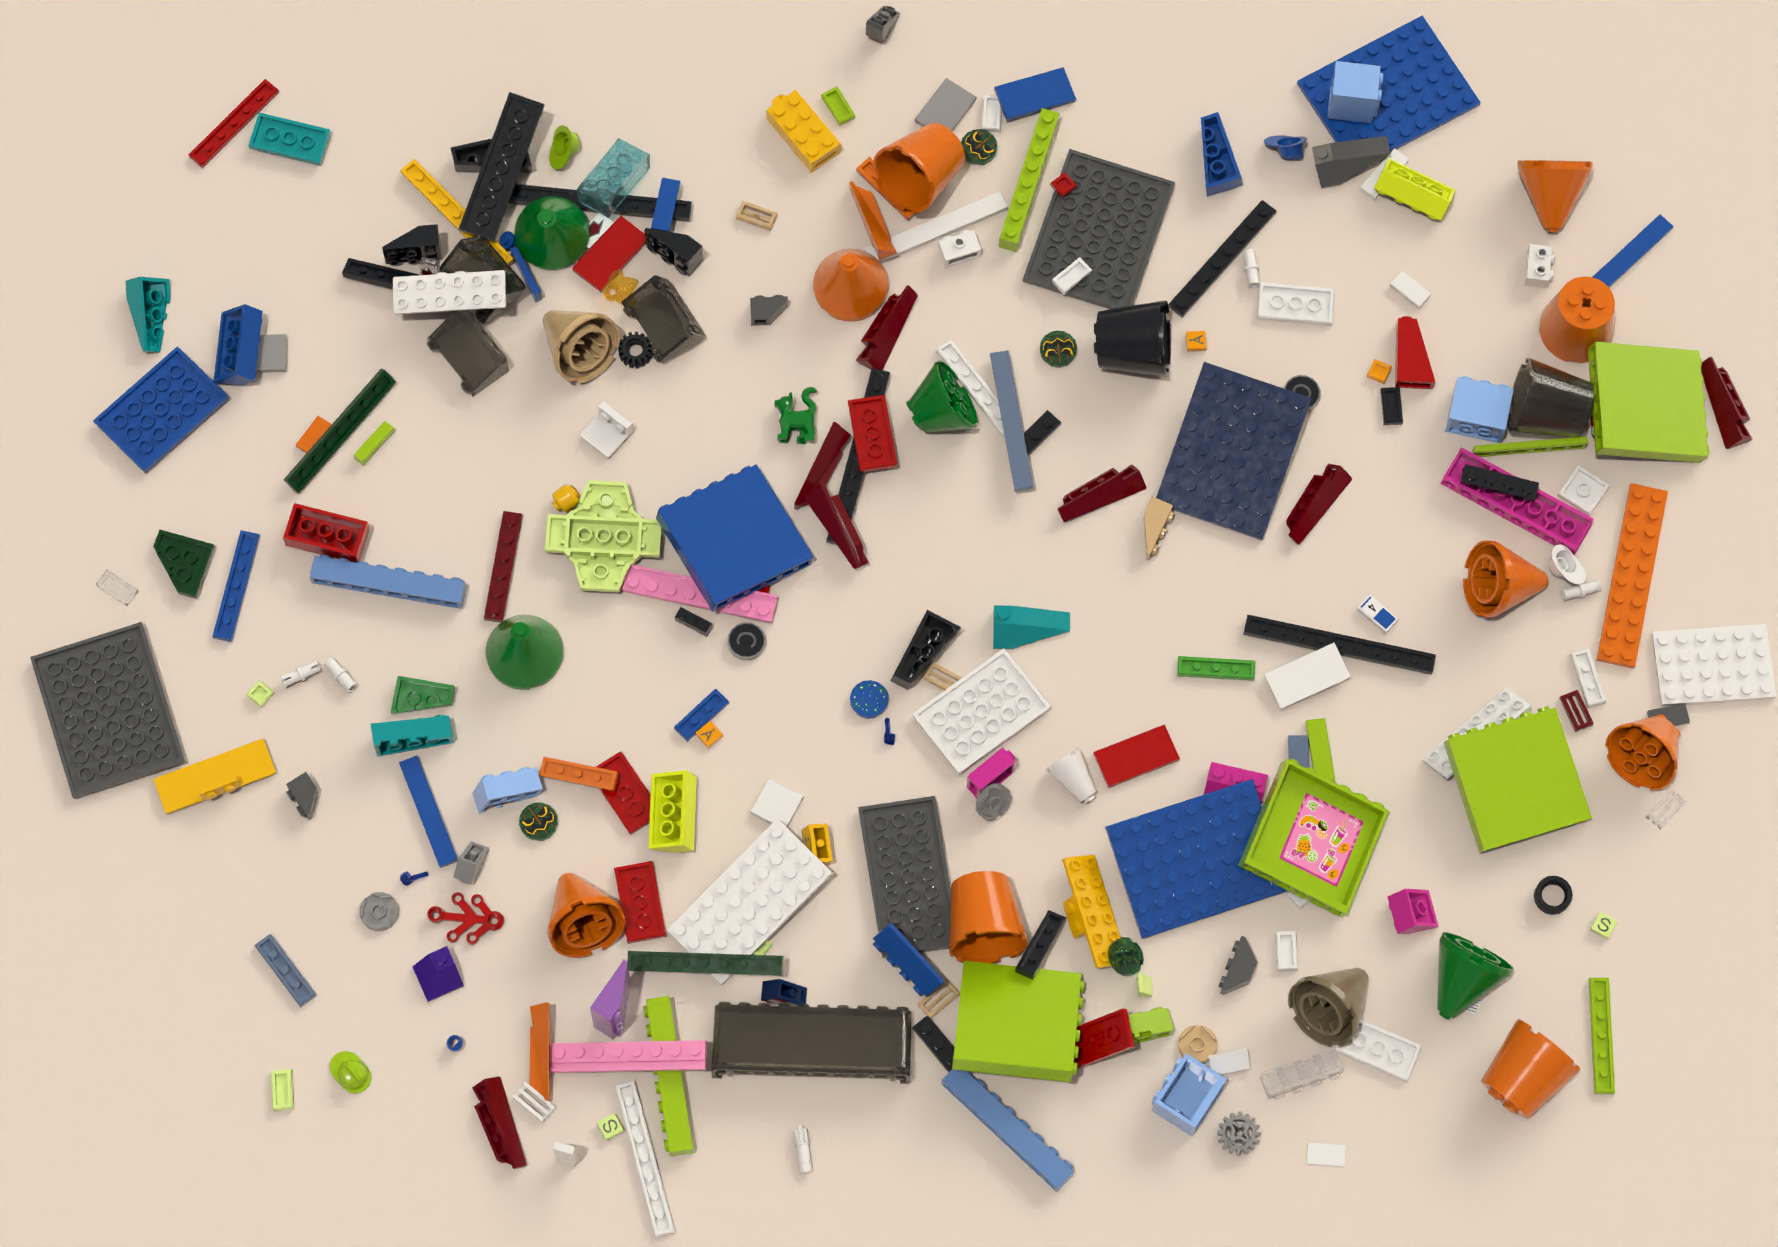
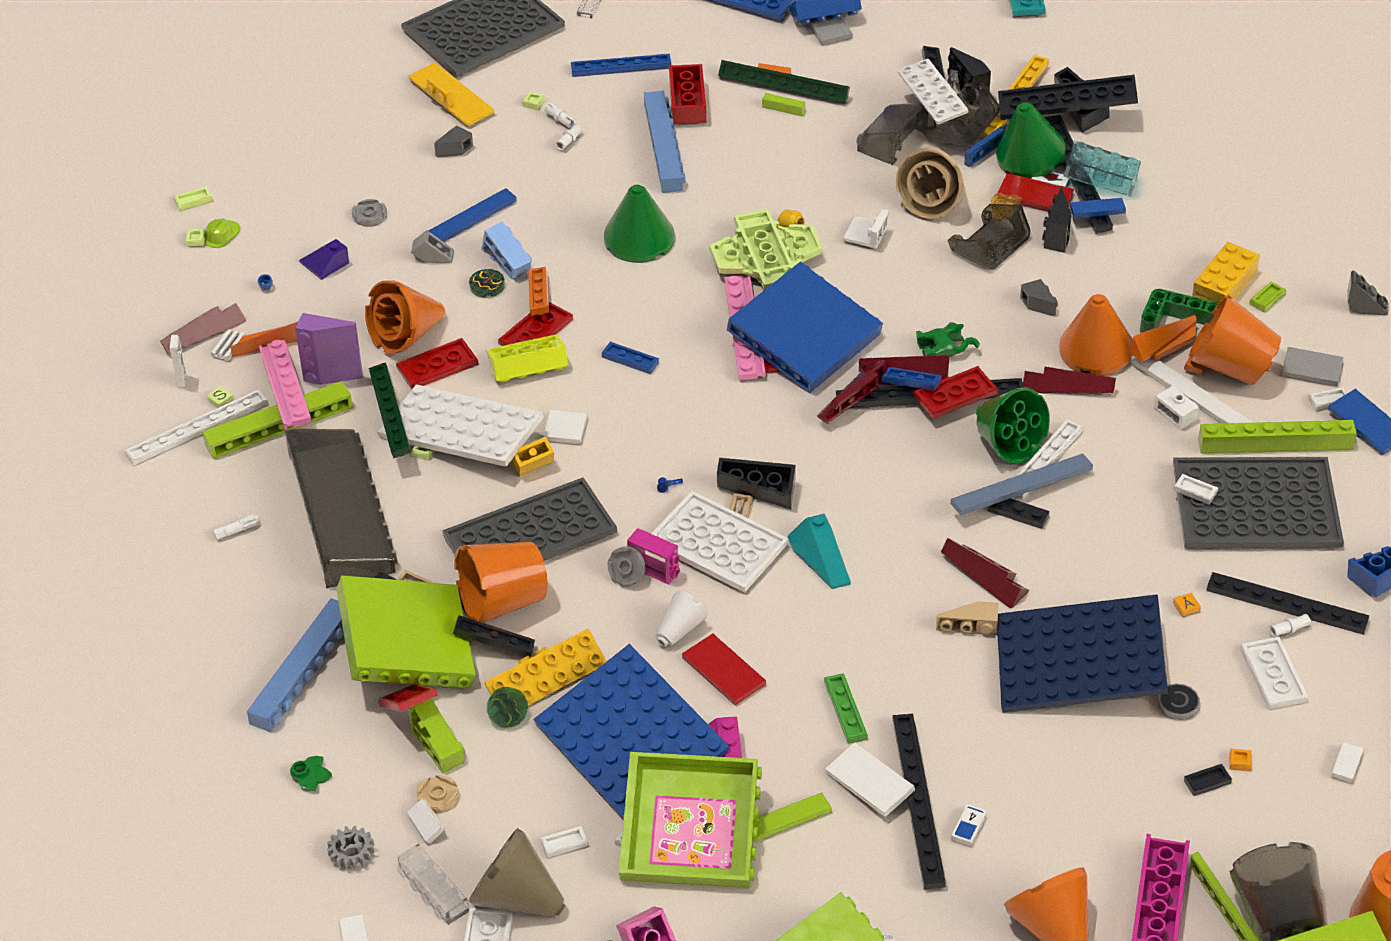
camera: 75 degrees right, 25 degrees down
(184, 560) = (627, 32): dark green plate -> none
(285, 970) = (298, 174): sand blue tile -> none
(350, 1100) = (195, 237): none -> yellowish green tile
(407, 879) = (404, 221): clear blue hand -> none
(411, 734) = (530, 183): teal wedge -> none
(420, 695) = (570, 184): green wing -> none
(468, 918) = (377, 244): red plant -> none
(503, 566) = (712, 204): dark red plate -> none
(563, 147) = (1118, 141): lime piece -> none
(635, 360) = (952, 221): black tyre -> none
(693, 621) = (715, 329): black piece -> none
(709, 734) = (613, 366): light orange tile -> none
(746, 641) = (714, 367): black tile -> none
(772, 214) = (1127, 281): tan tile -> none
(782, 991) = (382, 474): dark blue slope -> none
(833, 186) = (1175, 305): none -> green beam
(843, 465) = (911, 378): none -> blue tile
(869, 699) = (695, 462): blue tile -> none
(908, 959) = (443, 541): blue slope -> none
(979, 147) = (1289, 398): clear green tile -> none
(1058, 349) = (1117, 505): clear green tile -> none
(1063, 185) = (1285, 459): red tile -> none
(1134, 338) = (1154, 543): black cone -> none
(1138, 1147) = (310, 772): none -> green plate
(1144, 985) = (483, 732): yellowish green slope -> none
(1188, 1094) = (375, 789): light blue container -> none
(1239, 968) = (530, 803): dark grey slope -> none
(1298, 749) = (781, 797): sand blue tile -> none
(1316, 500) = (1065, 741): dark red wedge -> none
(1411, 357) = (1270, 778): red slope -> none
(1479, 409) = (1234, 833): light blue container -> none
(1499, 483) = (1165, 882): black plate -> none

